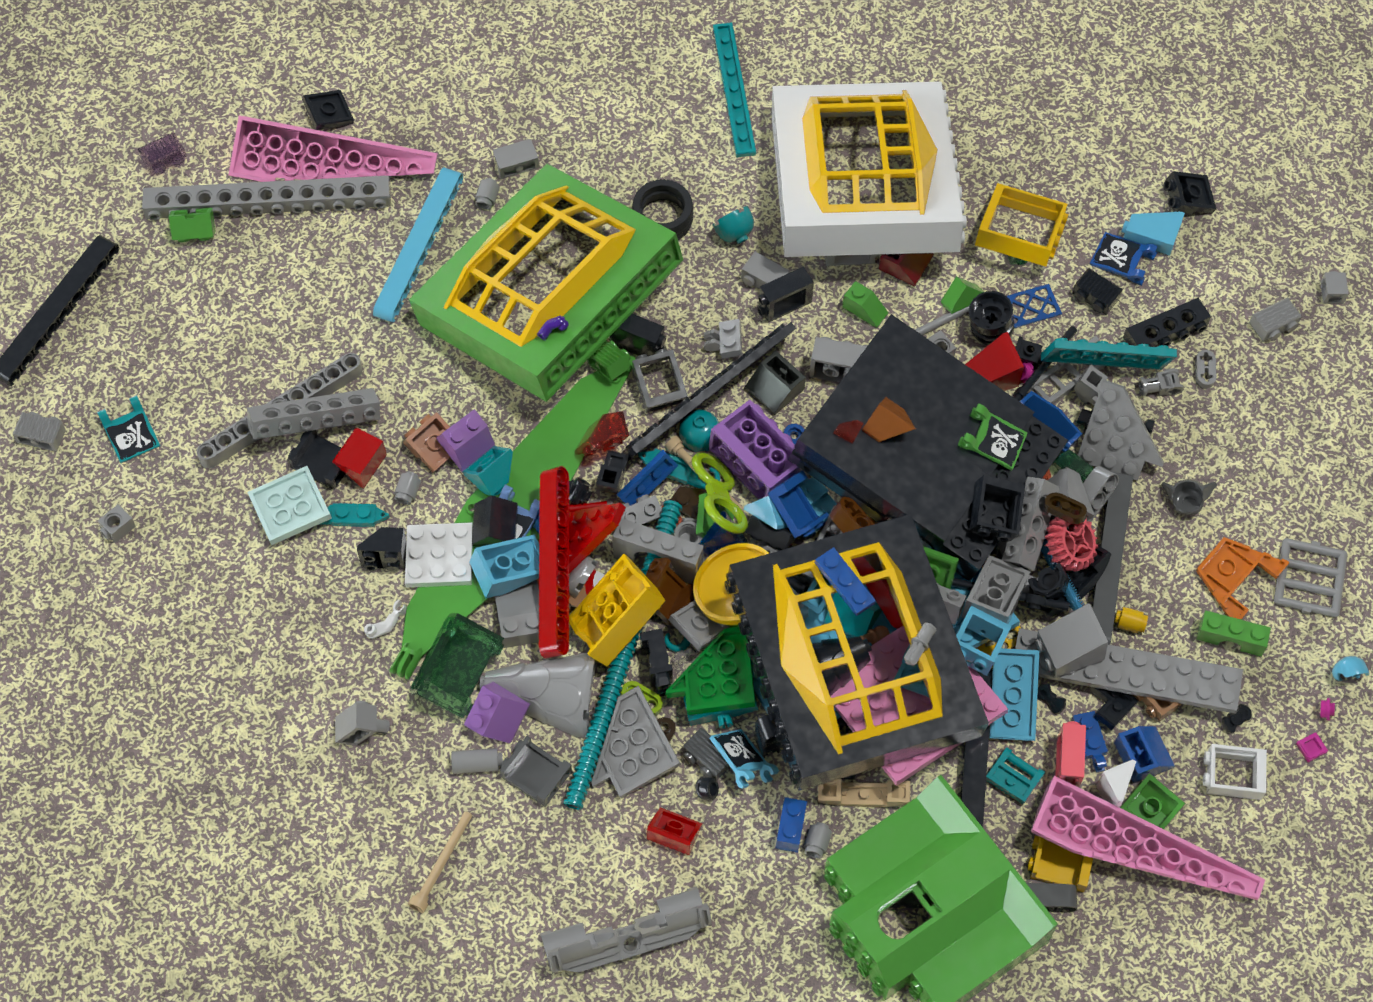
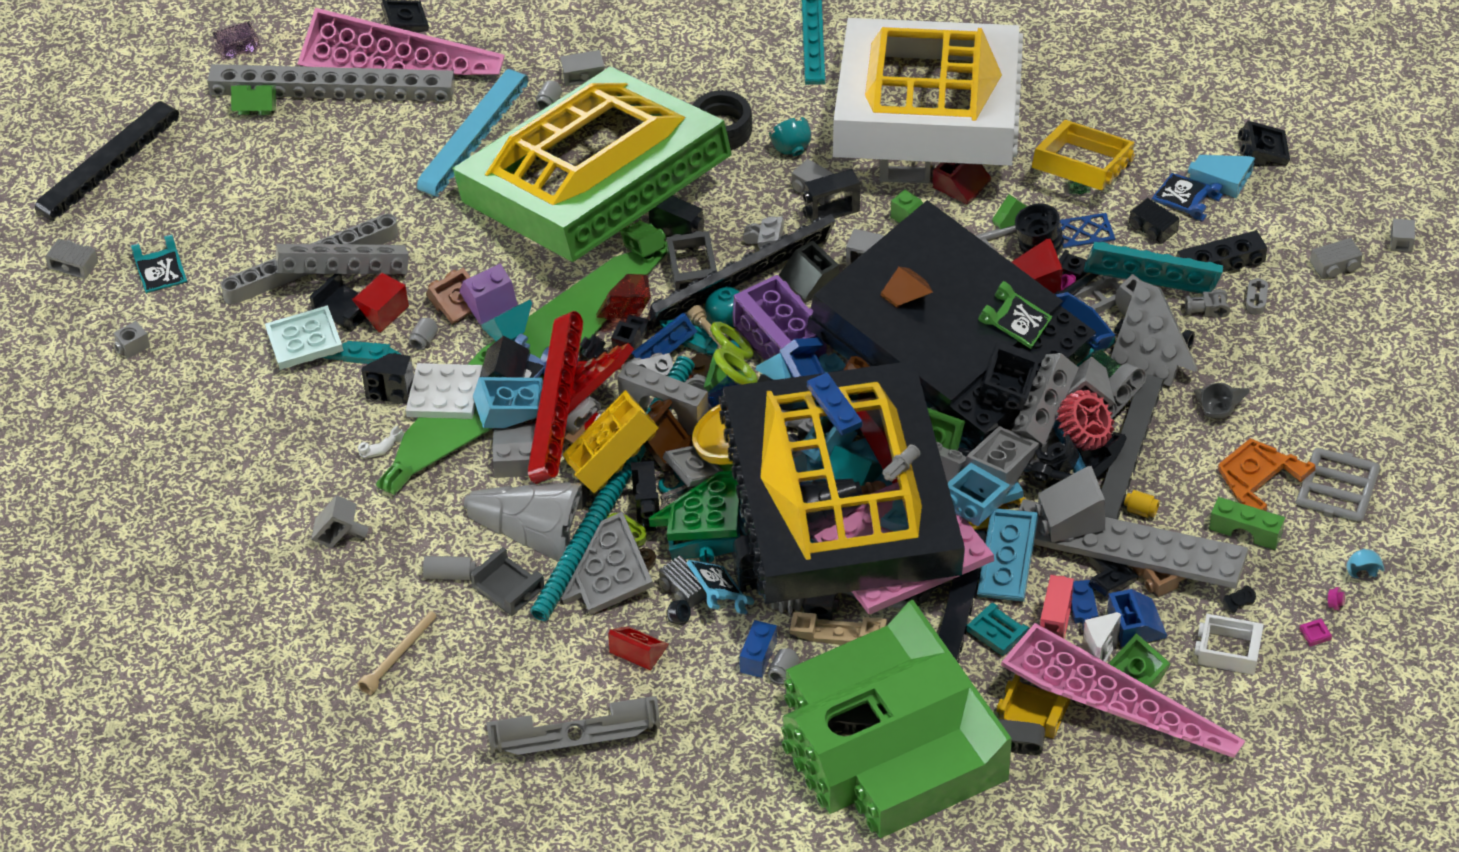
camera: 10 degrees right, 15 degrees down
(455, 664) = (444, 480): clear green windscreen -> none
(496, 713) = (476, 525): medium lavender slope -> none
(551, 324) = (584, 186): dark purple arm -> none
(849, 430) = (866, 293): clear red tile -> none
(1056, 703) = (1041, 560): black piece -> none
(1066, 509) = (1079, 381): dark brown plate -> none

